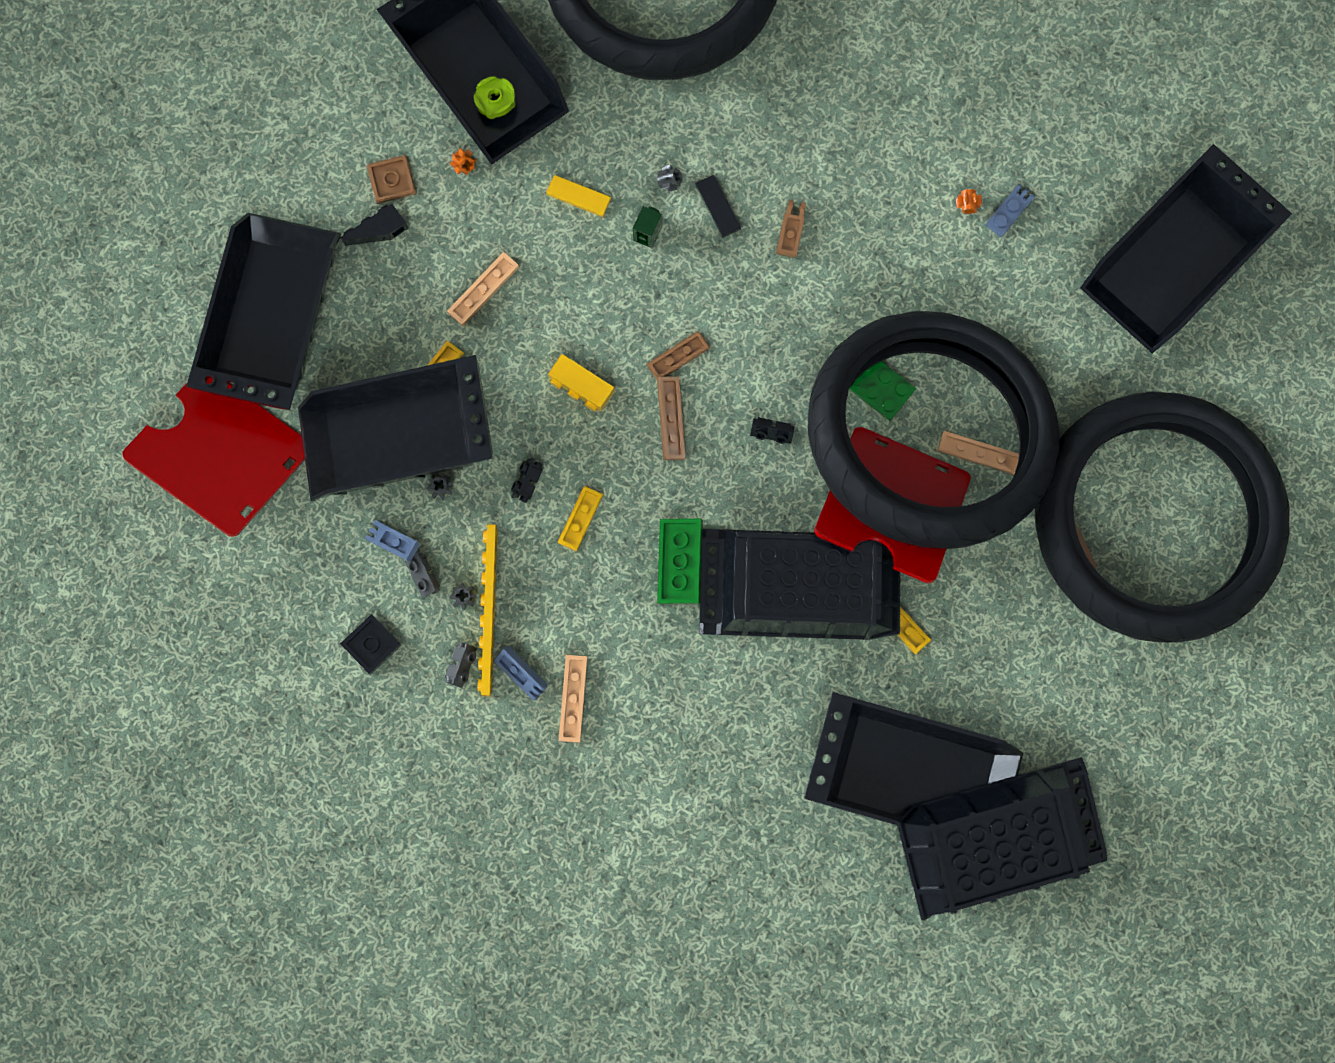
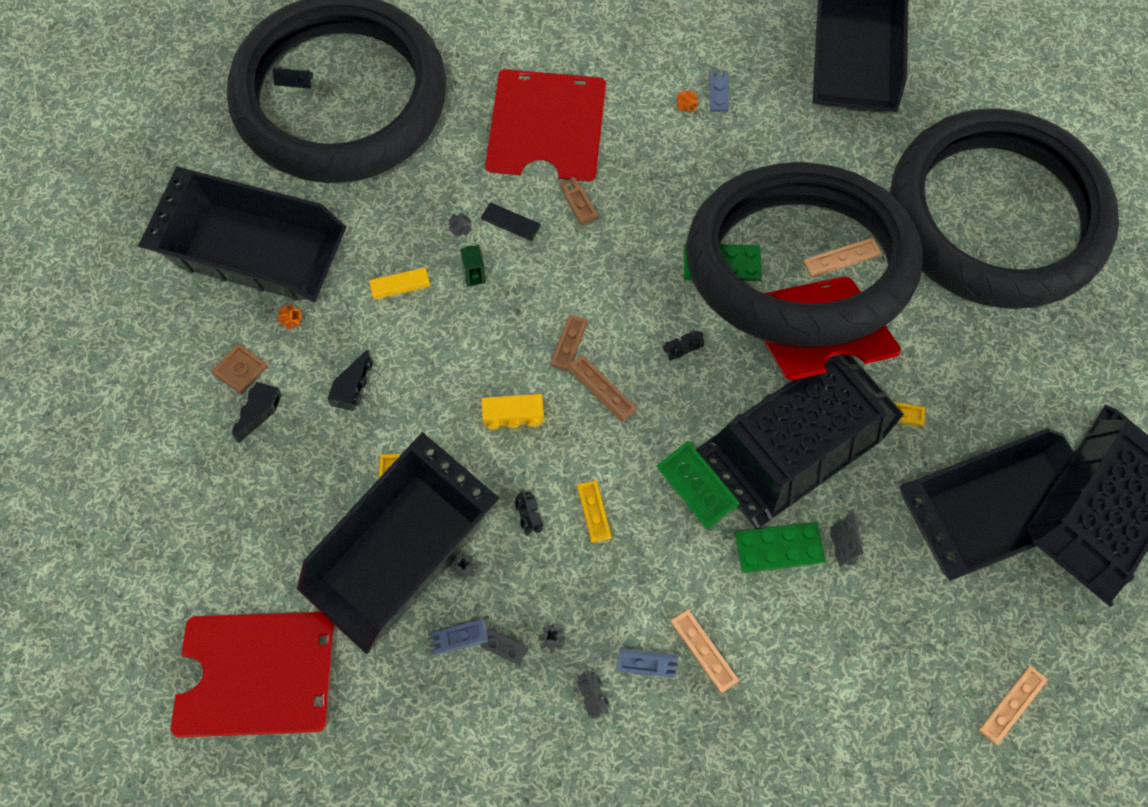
camera: 40 degrees left, 15 degrees down
(263, 310) = (213, 532): black piece -> none
(370, 644) = (506, 734): black plate -> none
(465, 260) = (347, 385): none -> black slope
(483, 289) = (378, 397): light nougat plate -> none
(486, 641) = (586, 641): yellow plate -> none
(497, 107) = (280, 262): lime plate -> none
(704, 662) = (779, 547): none -> green plate
(762, 695) = (847, 540): none -> dark grey hinge
(781, 929) = (1013, 705): none -> light nougat tile
(827, 129) = (546, 121): none -> red door

